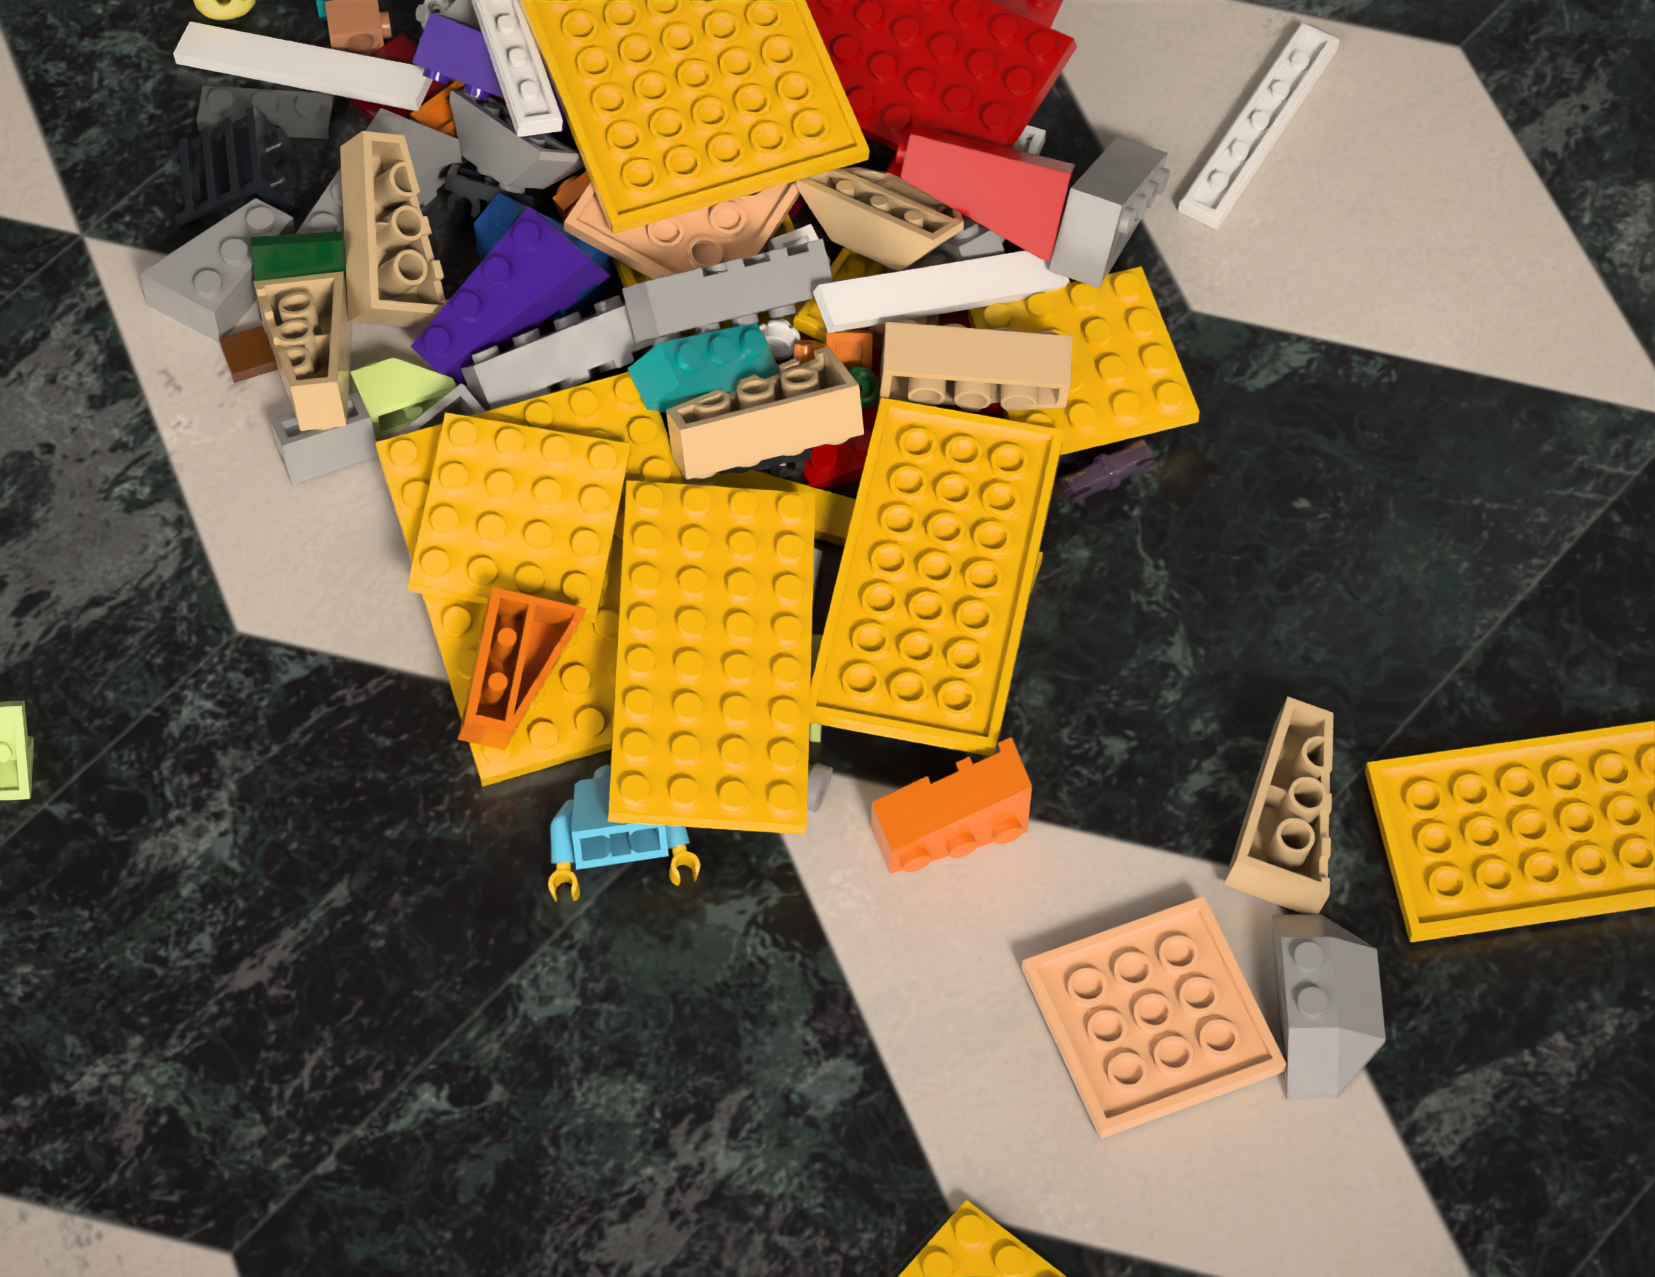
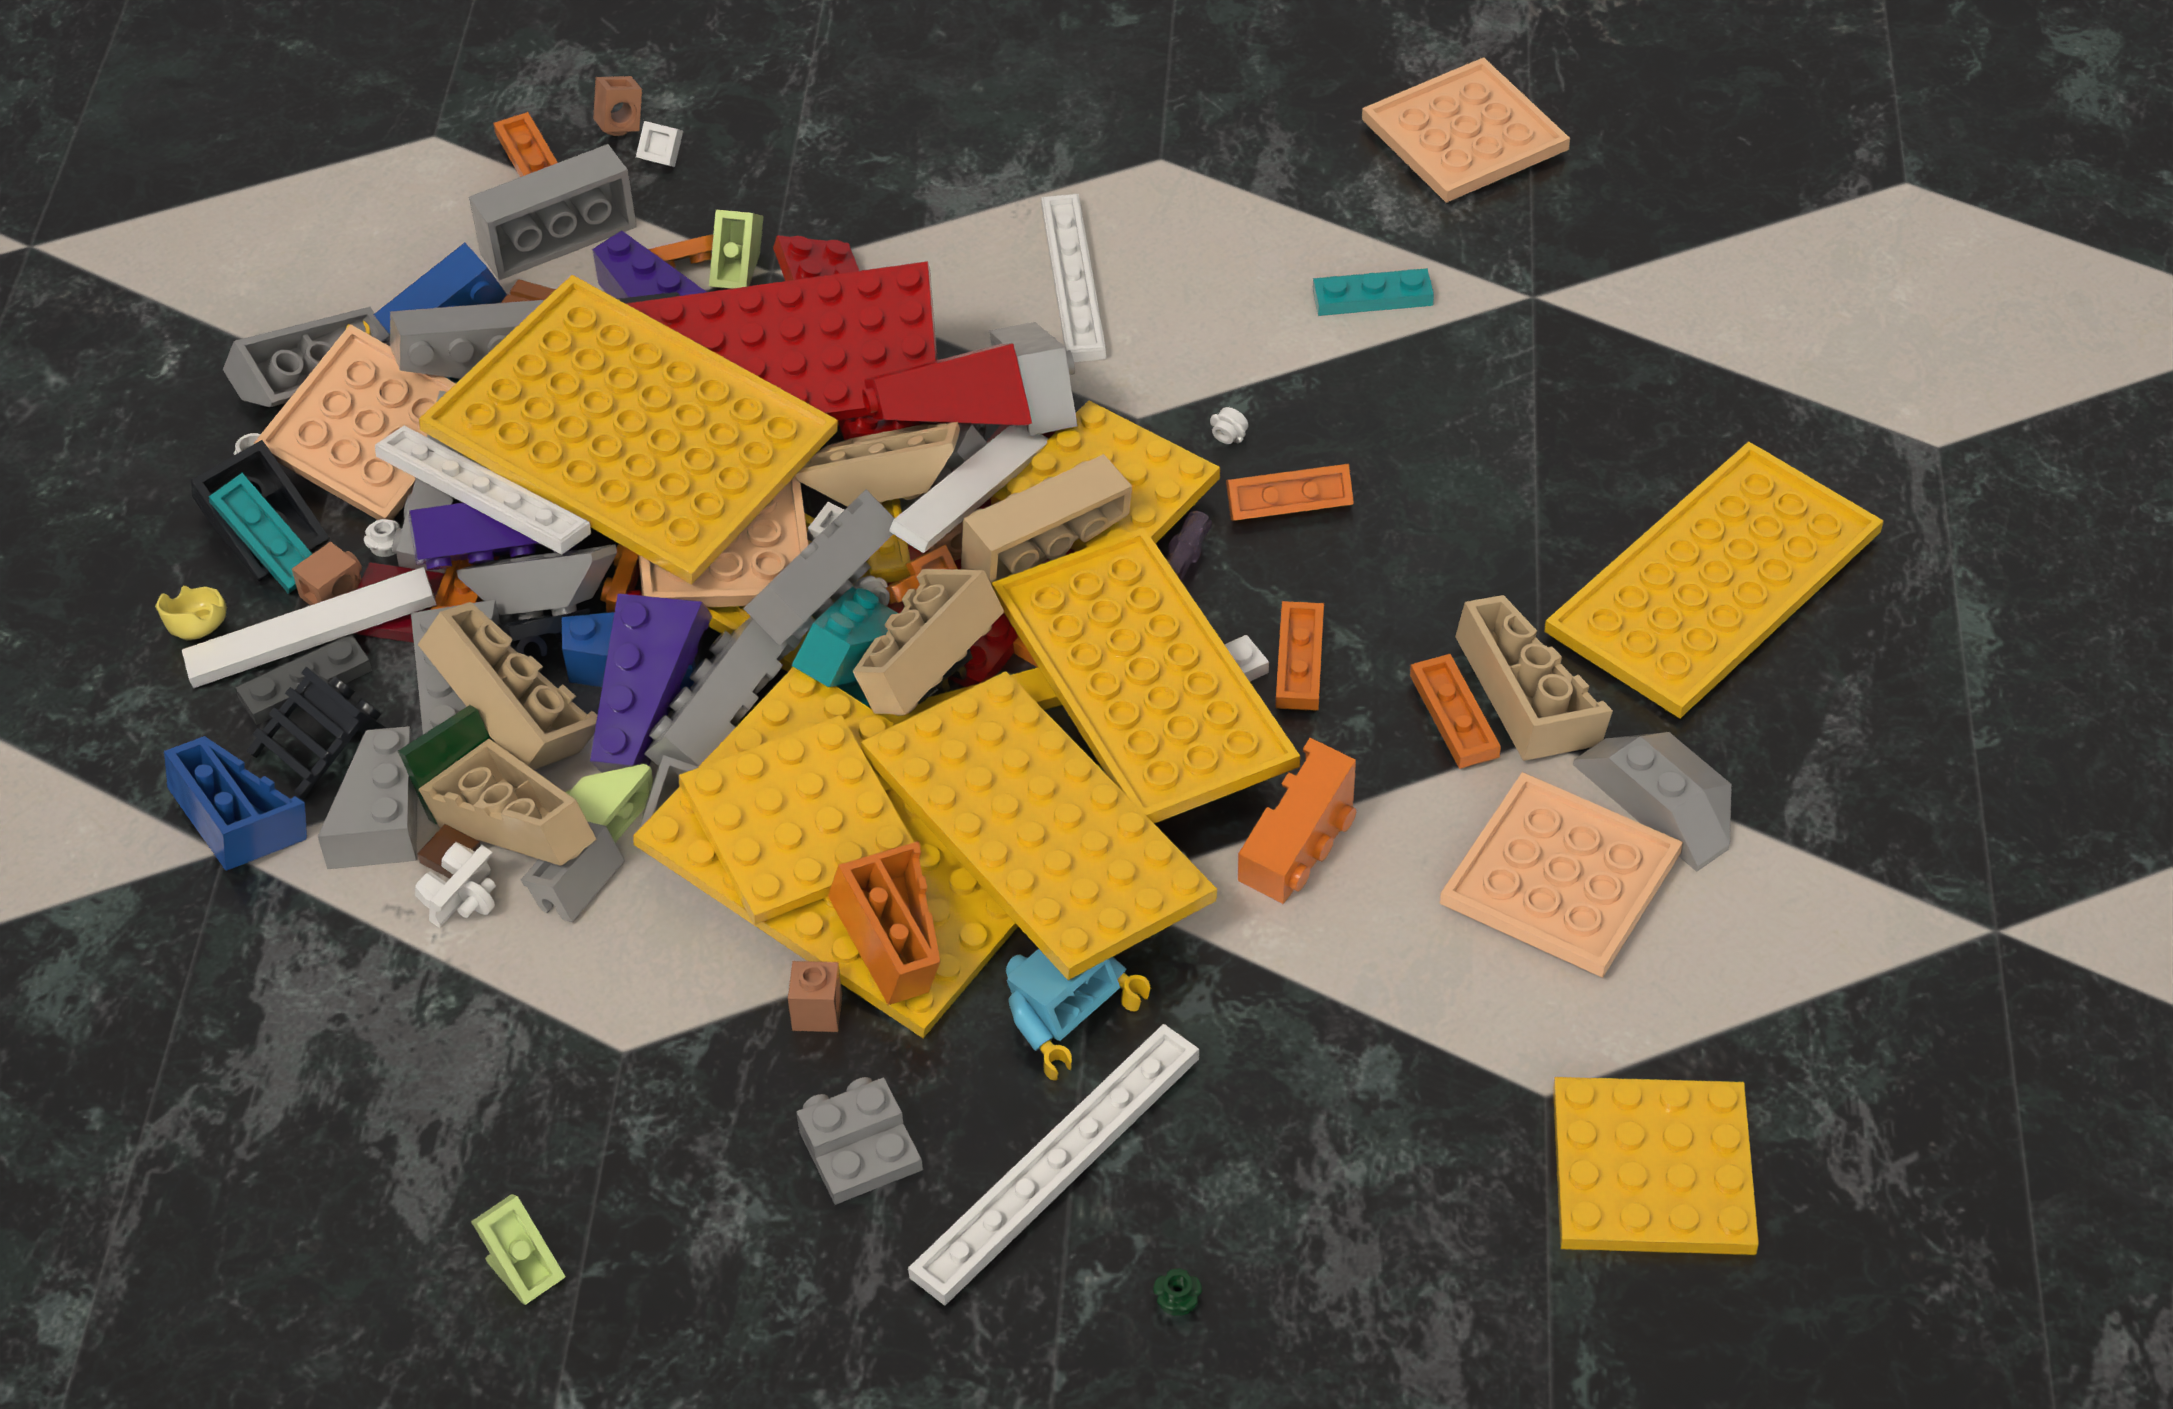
camera: 35 degrees left, 10 degrees down
(105, 199) = (230, 805): none -> blue wedge
(225, 397) = (465, 891): none -> white hips
(346, 841) = (858, 1139): none -> light grey plate
(416, 688) = (815, 996): none -> nougat brick
(483, 975) = (1053, 1165): none -> white plate
(484, 1171) = (1177, 1302): none -> dark green plate
(1058, 616) = (1248, 657): none -> white plate
(1113, 646) = (1299, 655): none -> orange plate
(1203, 794) = (1455, 711): none -> orange plate
(1252, 477) = (1289, 492): none -> orange plate
(1260, 373) = (1229, 426): none -> white plate
(1530, 317) = (1373, 292): none -> teal plate

